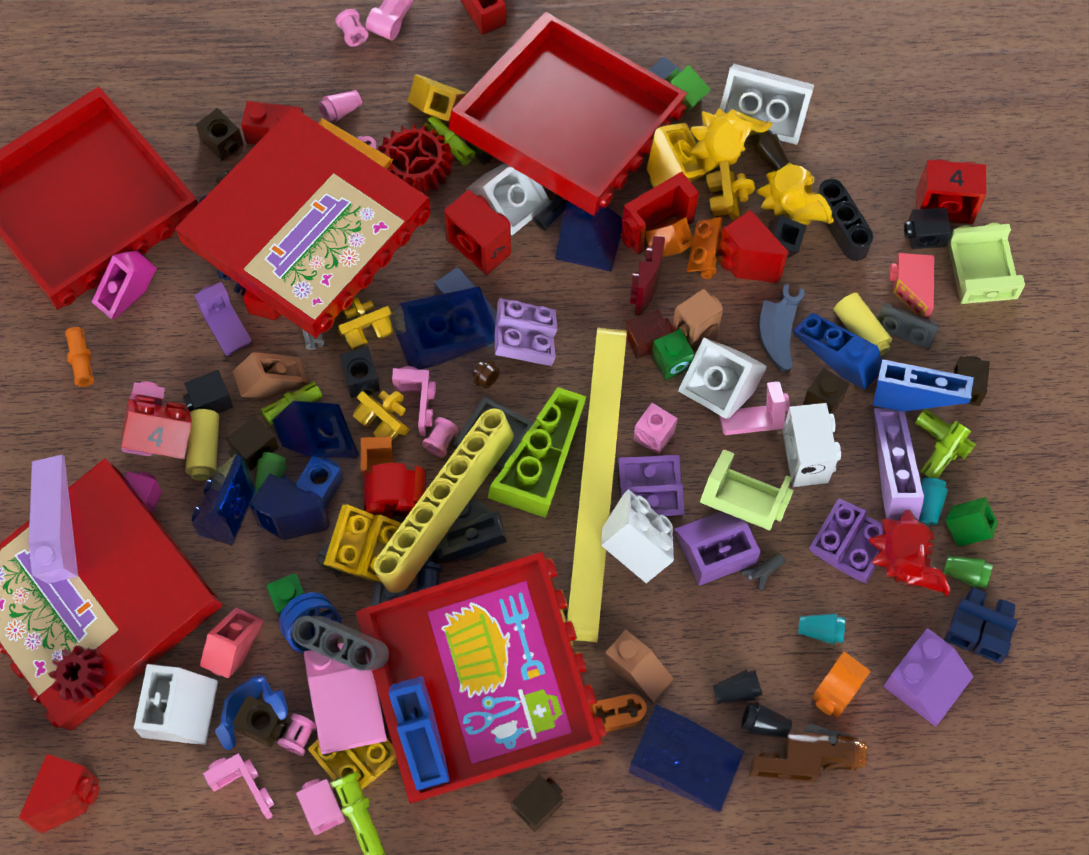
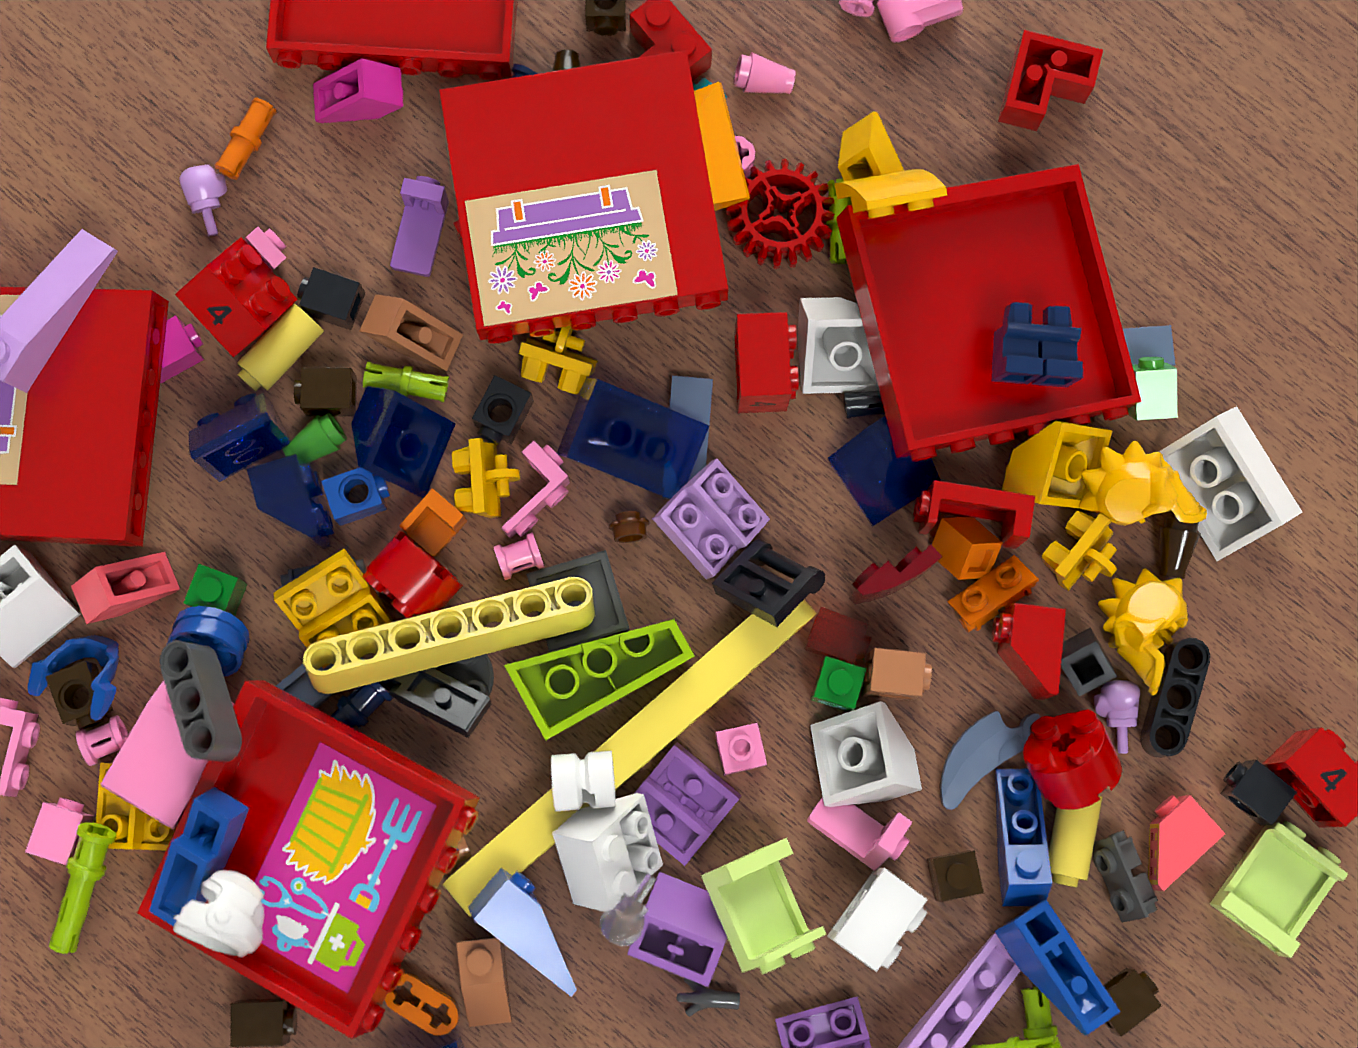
camera: 40 degrees right, 15 degrees up
(79, 403) = (202, 190): none -> lavender piece
(466, 742) = (231, 918): none -> white helmet
(467, 88) = (884, 191): none -> yellow slope
(587, 333) = (763, 591): none -> black plate
(595, 501) = (583, 781): none -> white wheel
(613, 103) = (1035, 351): none -> dark blue hips
(626, 608) = (516, 918): none -> slope
(684, 552) = (627, 919): none -> clear piece
(821, 247) = (1120, 706): none -> lavender piece
(825, 283) = (1071, 759): none -> red brick

